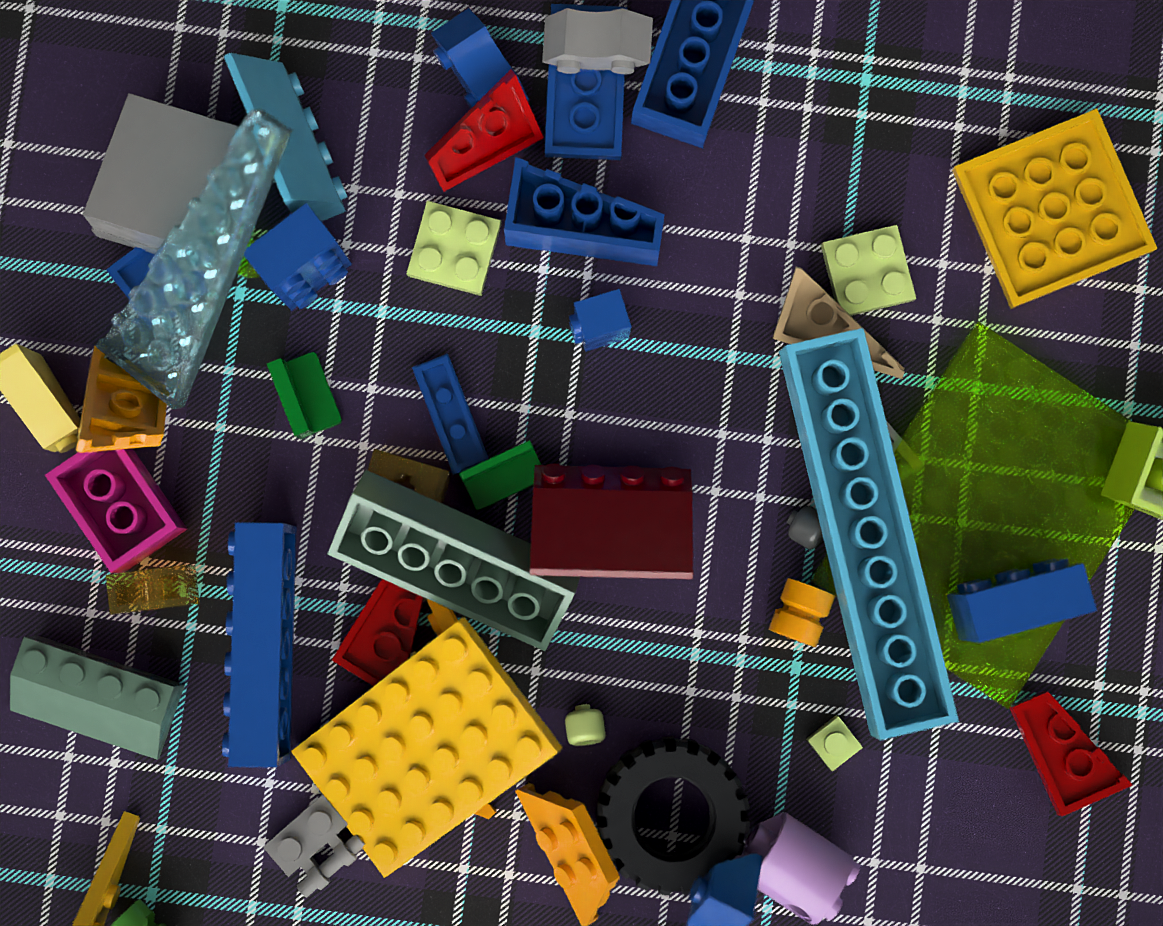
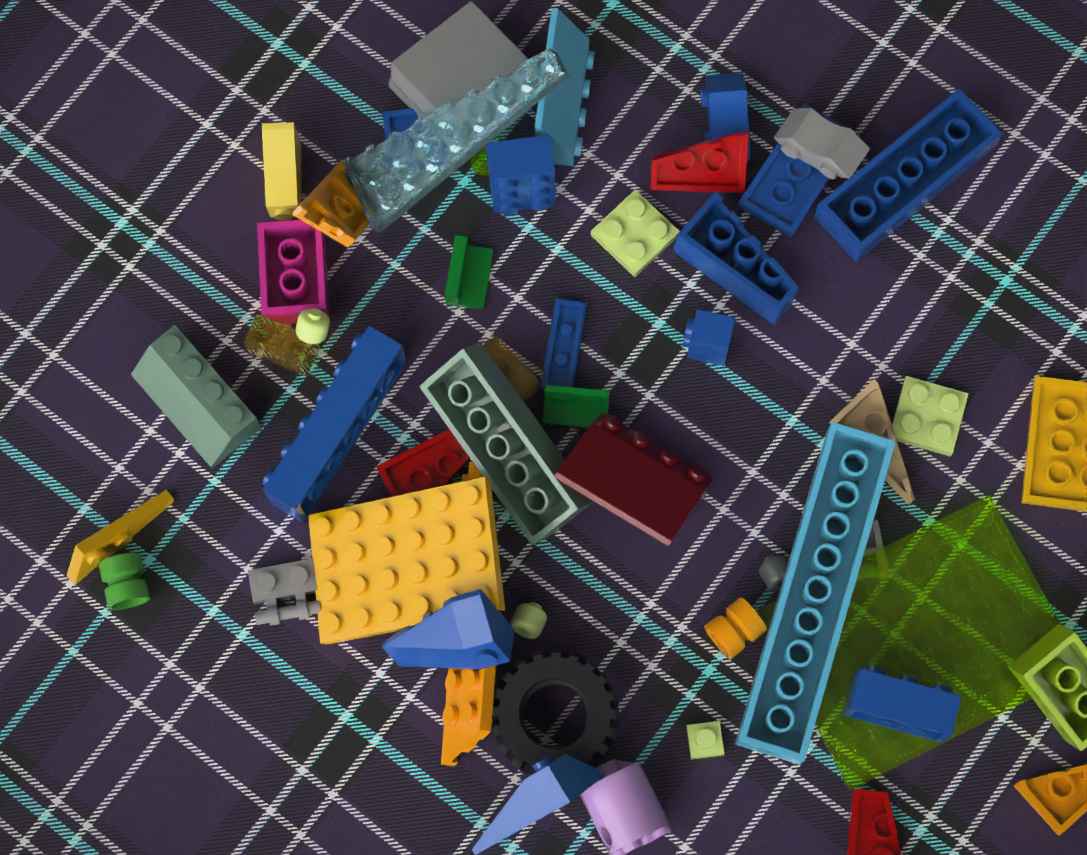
camera: 35 degrees right, 10 degrees down
(174, 554) = (312, 326): none -> yellowish green piece
(529, 798) = (460, 635): none -> blue wedge

